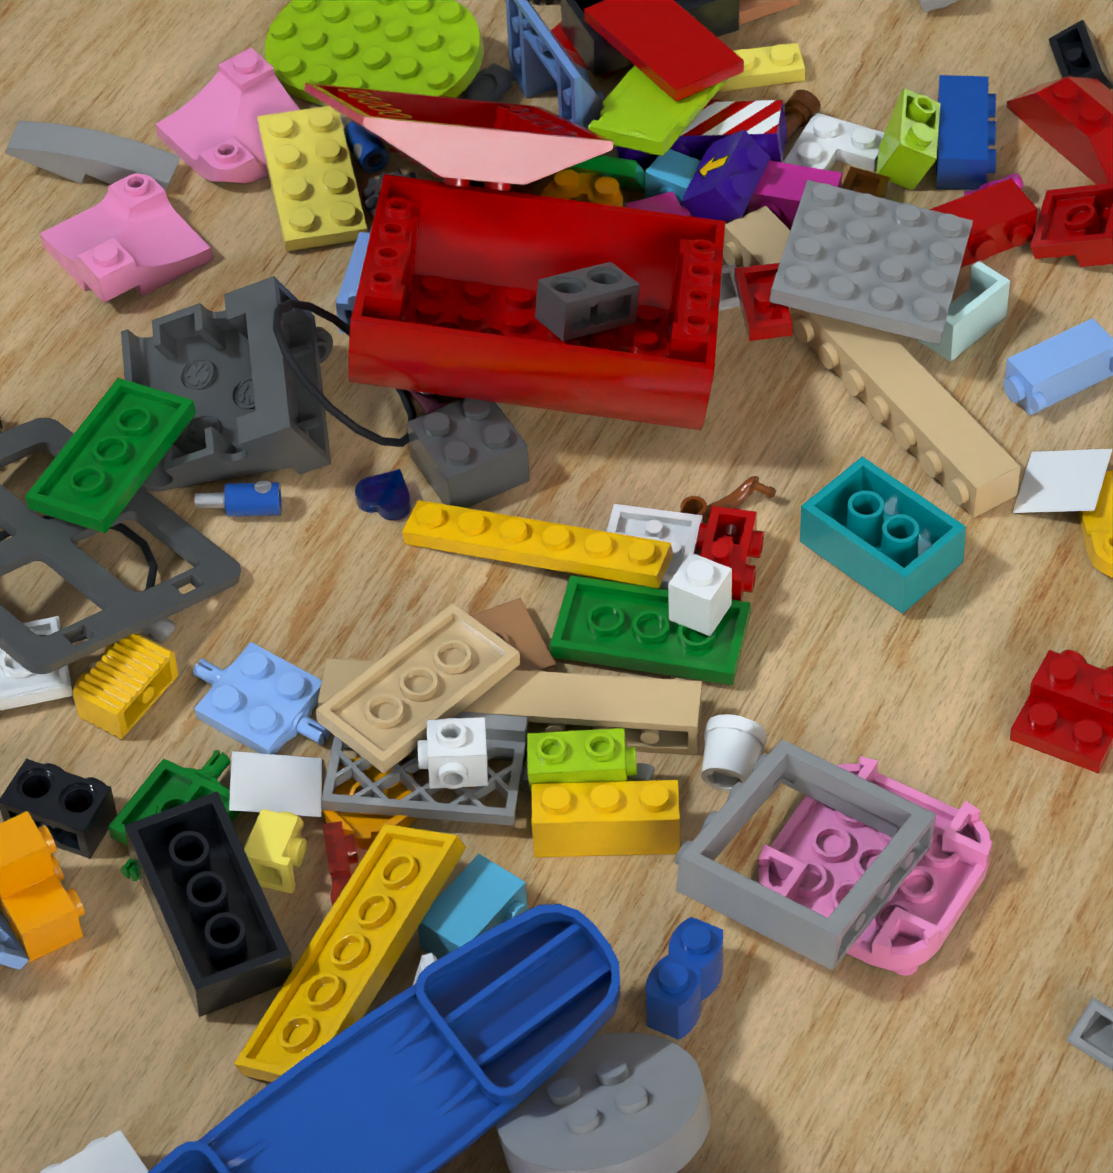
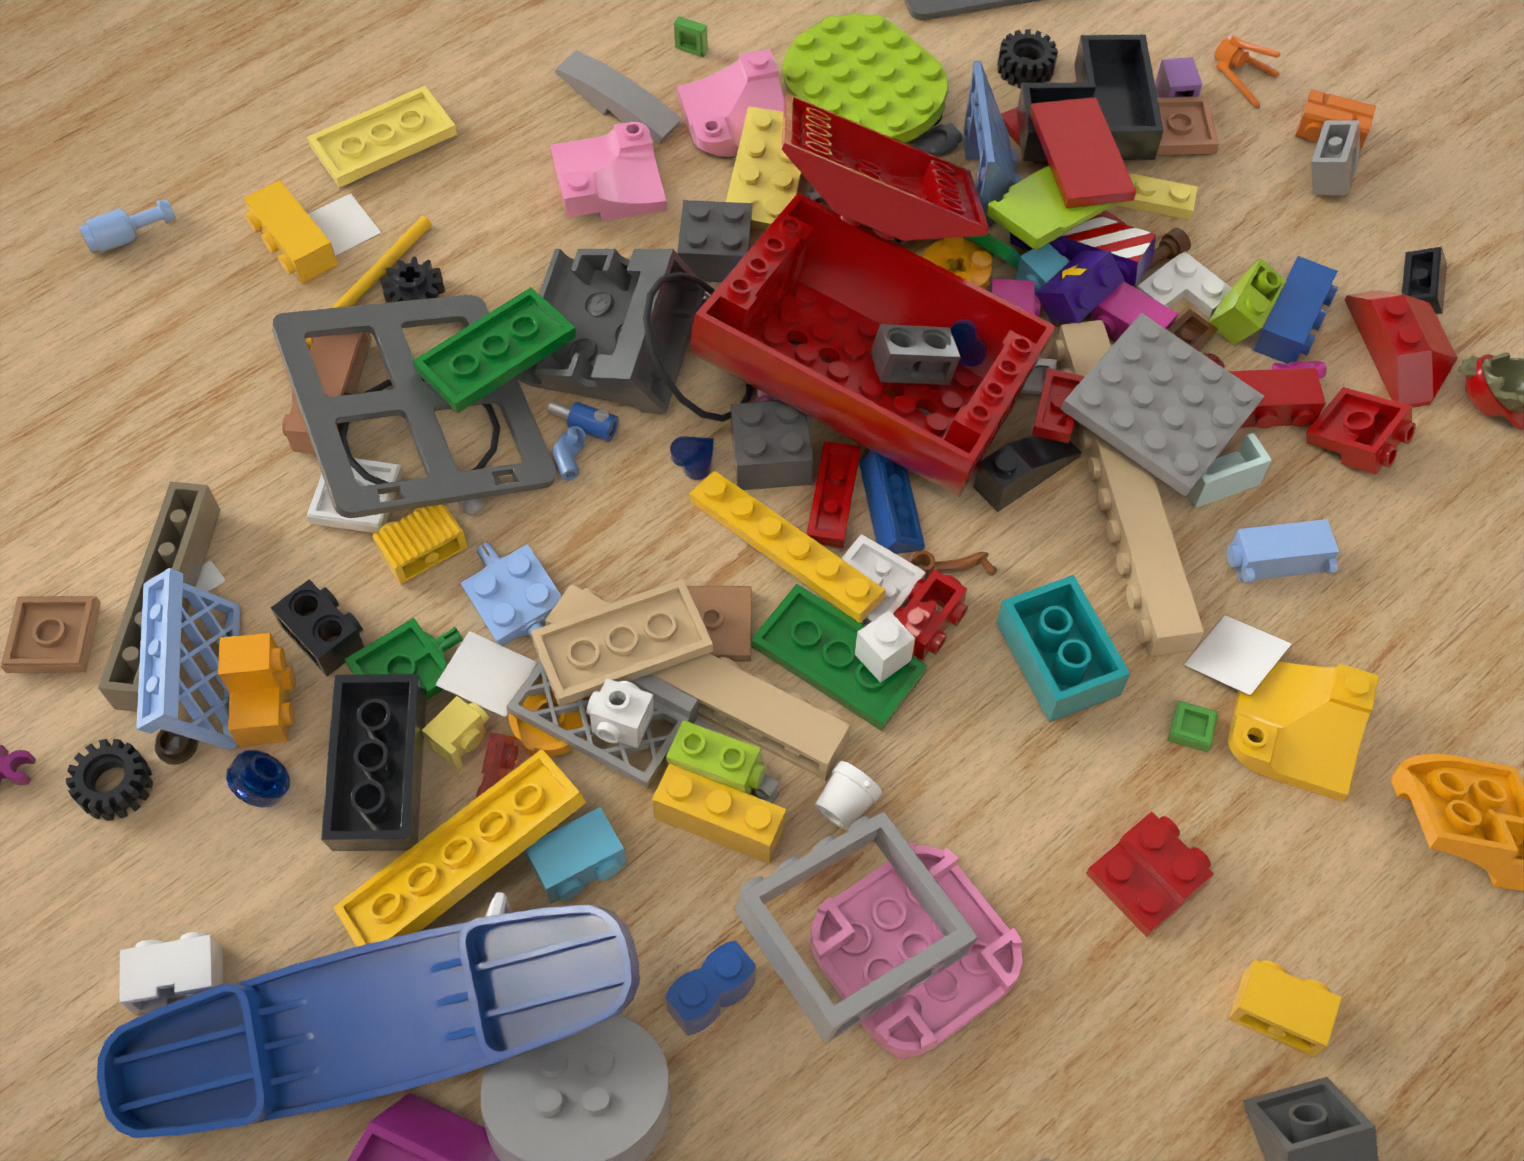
camera: 20 degrees right, 10 degrees up
(78, 975) = (257, 778): none -> clear blue plate
(143, 65) = (690, 36): none -> bright green tile
(238, 539) = (566, 451): none -> medium blue arm
(298, 256) = (714, 237): none -> dark grey brick
(561, 475) = (833, 494): none -> red plate
(625, 464) = (891, 504): none -> blue slope
(644, 274) = (970, 347): none -> clear blue tile
(750, 383) = (1020, 468): none -> black slope
(1050, 564) = (1192, 726): none -> bright green tile

